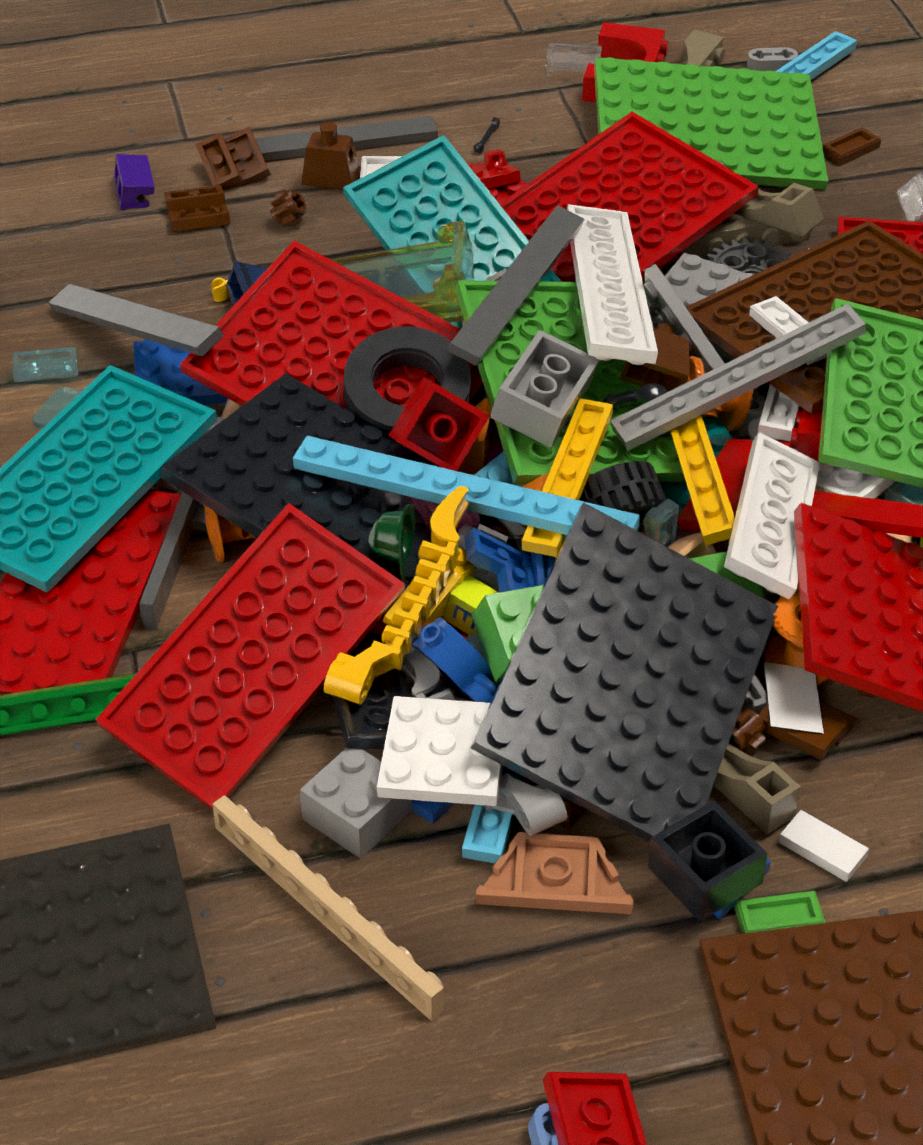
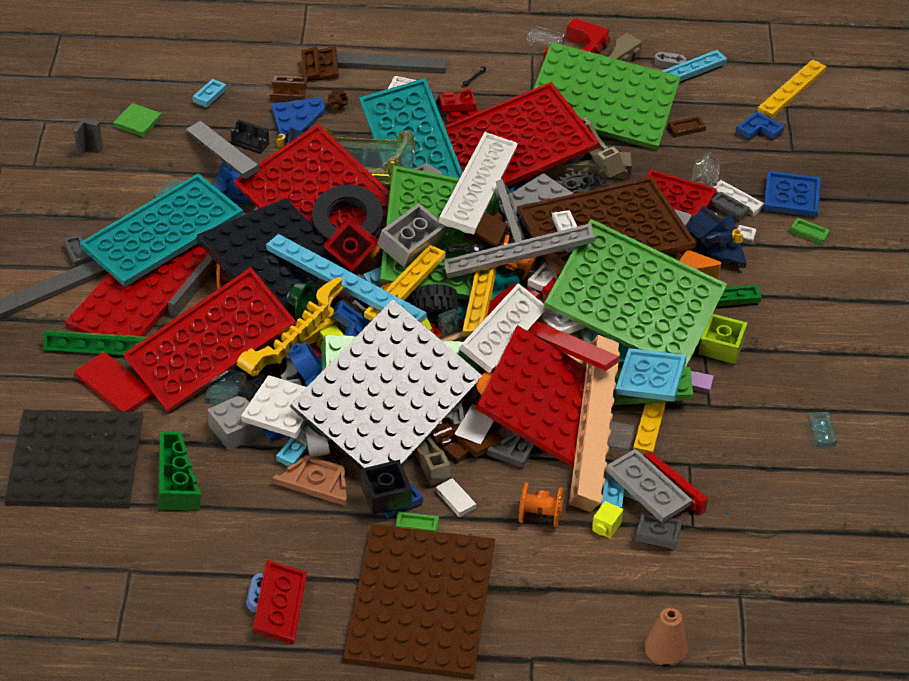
camera: 15 degrees right, 0 degrees up
(45, 364) = (171, 164): clear light blue plate -> none
(66, 238) = (209, 93): none -> medium azure plate
(90, 780) = (114, 383): none -> red tile
(131, 179) = (259, 65): dark purple hinge -> none
(166, 290) = (250, 136): none -> black hinge
(223, 243) = (297, 114): none -> blue plate
(289, 942) = (175, 476): none -> green wedge
(310, 740) = (224, 387): none -> clear light blue plate
(330, 159) = (372, 75): reddish brown torso -> none
(336, 913) = (204, 471): tan plate -> none
(515, 286) = (426, 174): dark grey tile -> none
(780, 753) = (456, 451): none -> reddish brown tile
(879, 729) = (513, 450): none -> dark grey wing

